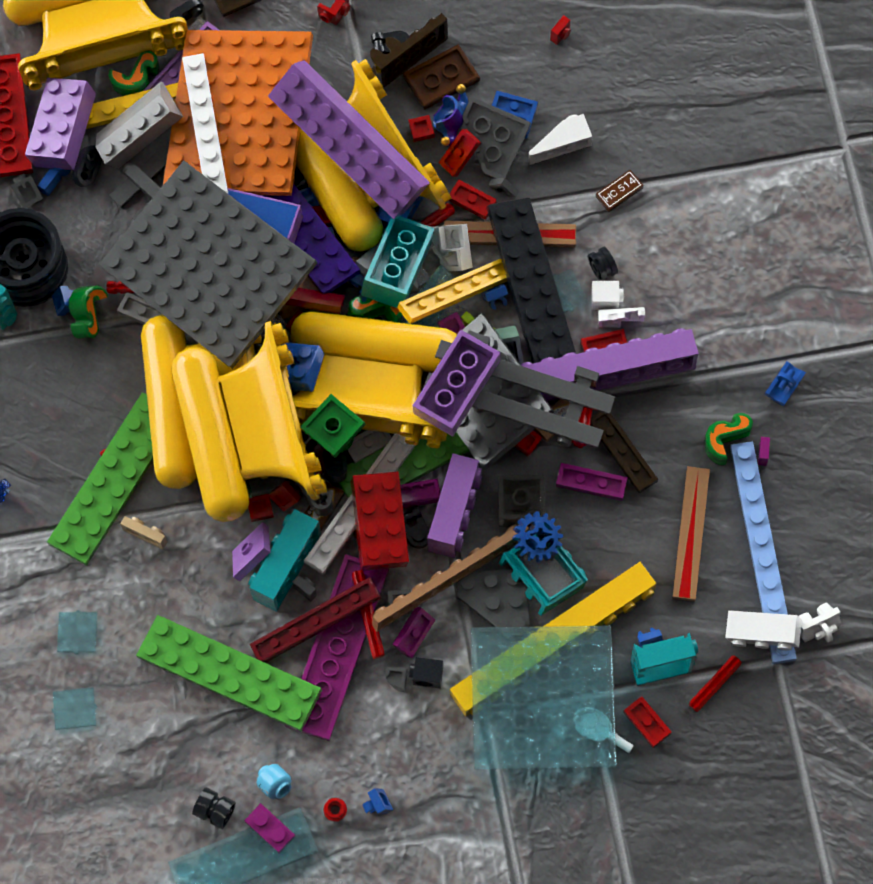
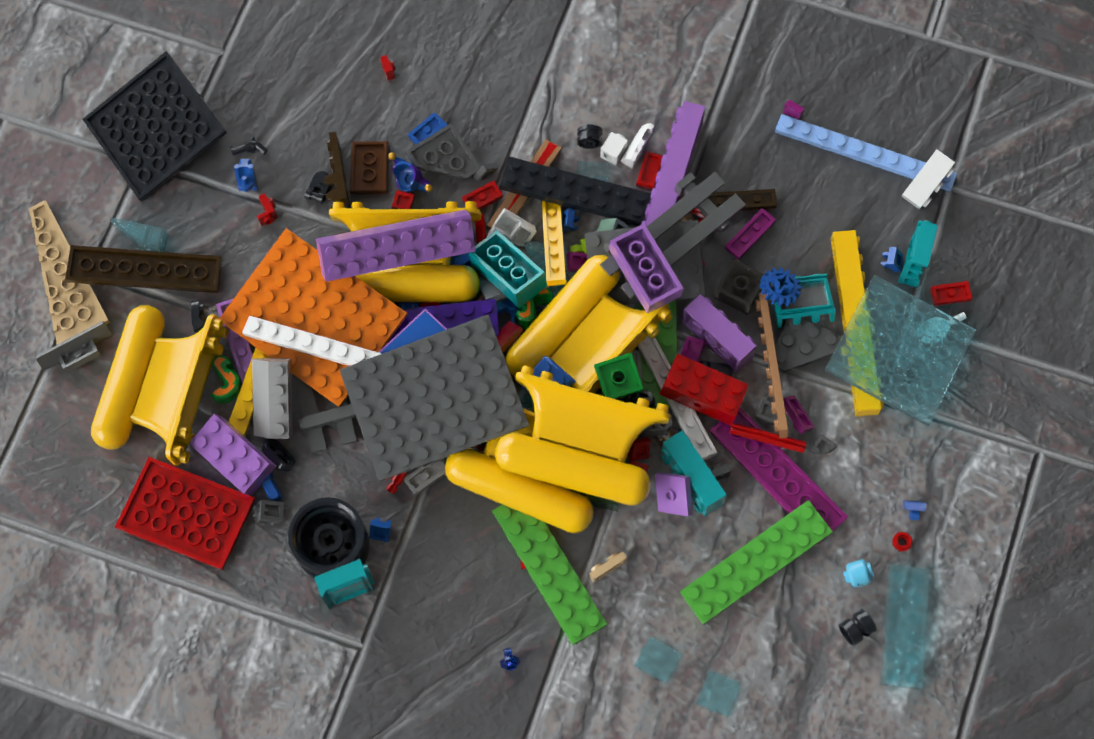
camera: 60 degrees left, 0 degrees up
(83, 311) = (401, 517): green animal -> none
(269, 828) = (896, 594): magenta plate -> none
(315, 620) = (752, 477): dark red tile -> none
(427, 672) = (833, 421): black brick -> none
(459, 152) = (441, 184): red plate -> none
(564, 138) = (475, 105): white slope -> none
(619, 190) = (537, 97): reddish brown tile -> none
(691, 534) = (826, 191): medium nougat tile -> none
(715, 683) = (945, 235): red axle -> none
(724, 432) = (763, 132): green animal -> none
(785, 384) = (753, 69): blue hips -> none
(822, 625) = (940, 136): white hips -> none

